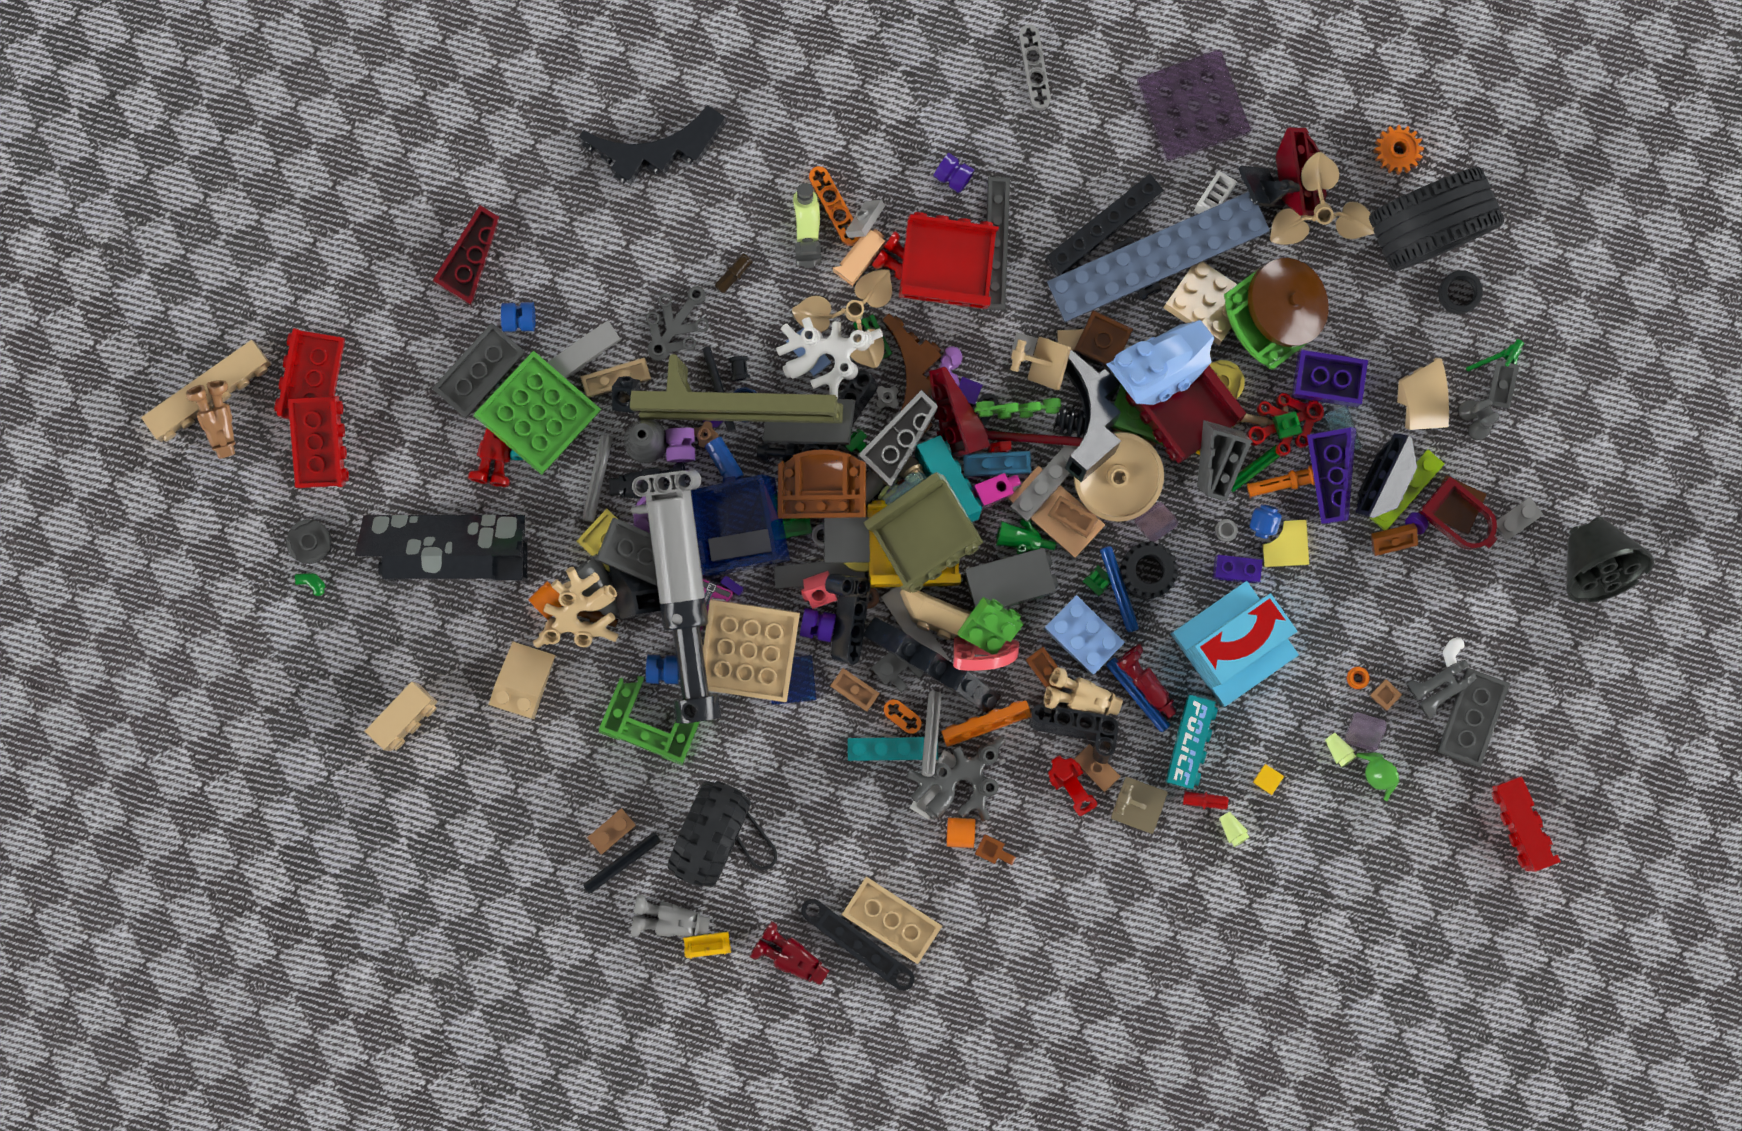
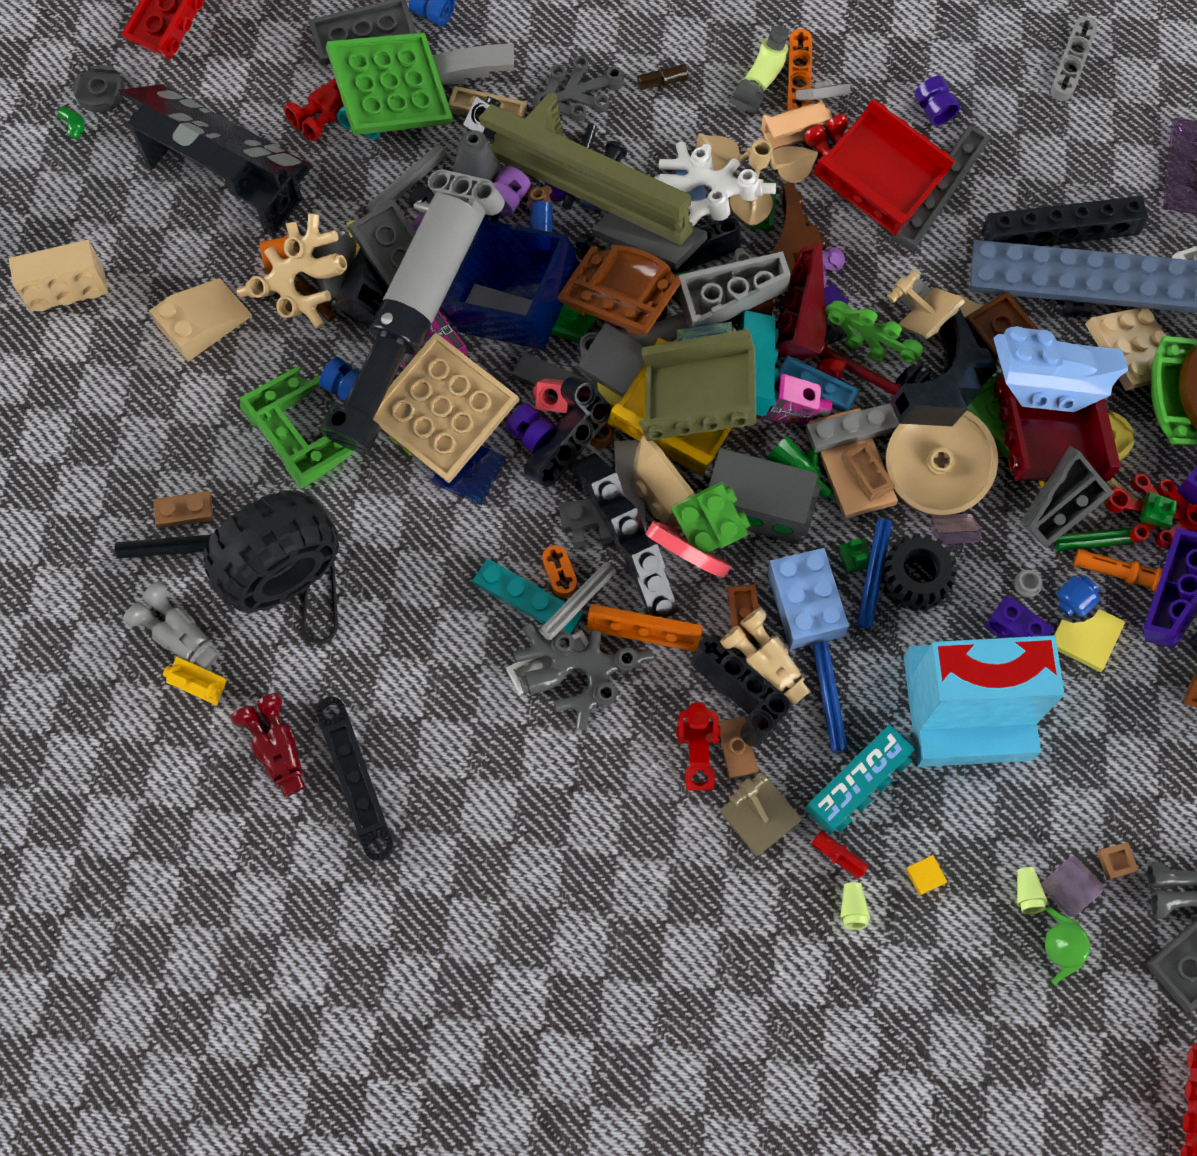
camera: 30 degrees right, 15 degrees down
(732, 586) = (471, 346): dark purple tile -> none
(854, 689) = (527, 515): medium nougat plate -> none
(892, 920) = (408, 774): tan plate -> none
(960, 832) = (543, 724): orange piece -> none
(991, 850) = (567, 765): dark orange plate -> none
(1146, 681) = (848, 684): dark red piece -> none
(1364, 678) = (1101, 820): orange plate -> none

